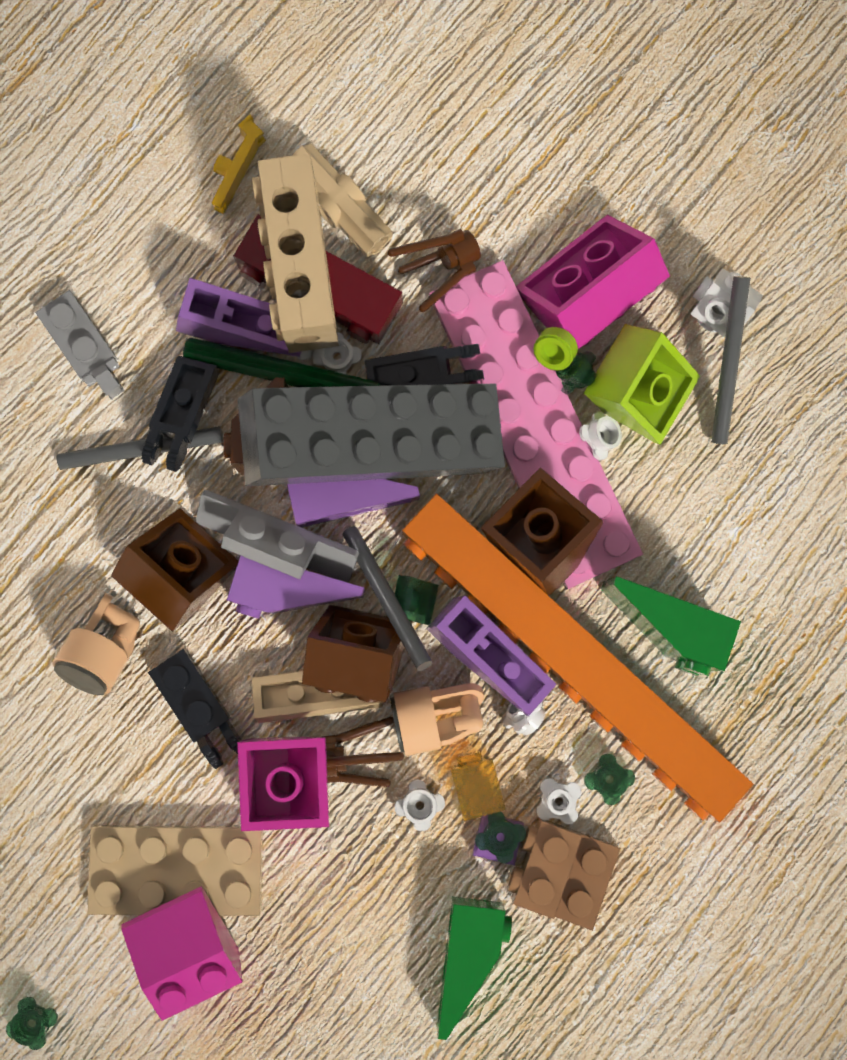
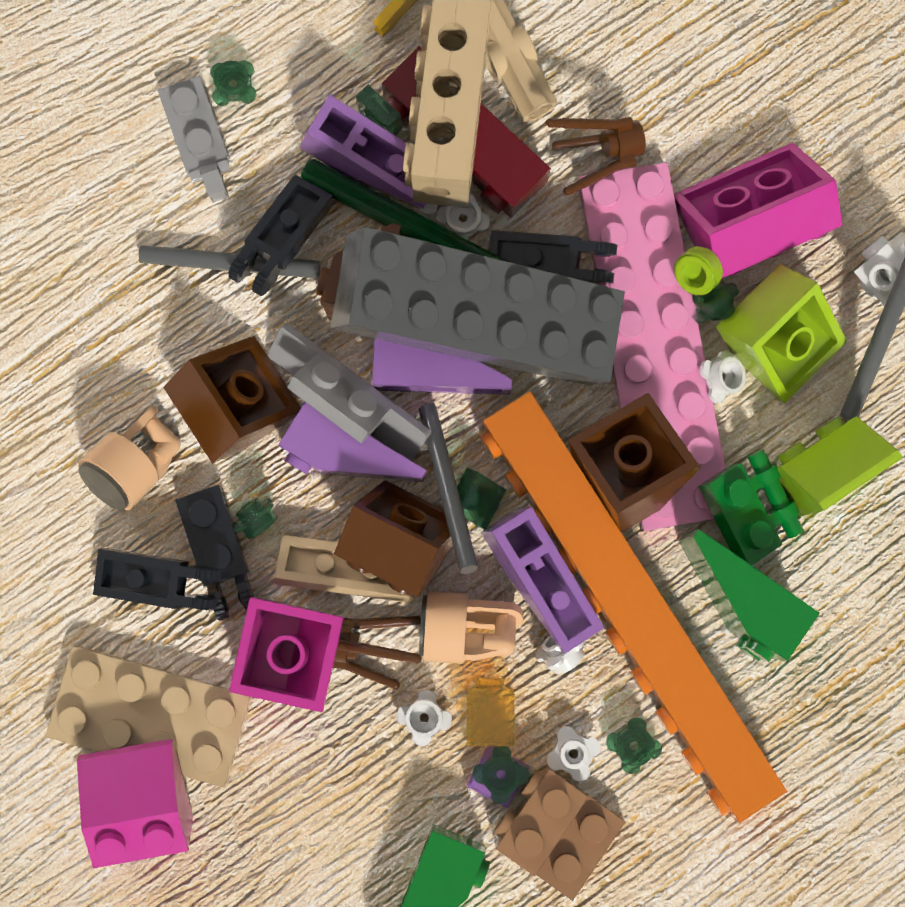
camera: 20 degrees right, 0 degrees up
(93, 280) = (232, 70): none -> clear green plate
(146, 749) = (151, 579): none -> black hinge
(223, 669) = (255, 517): none -> clear green plate
(237, 280) = (378, 110): none -> clear green plate
(649, 551) = (740, 512): none -> green plate
(717, 488) = (834, 464): none -> lime slope

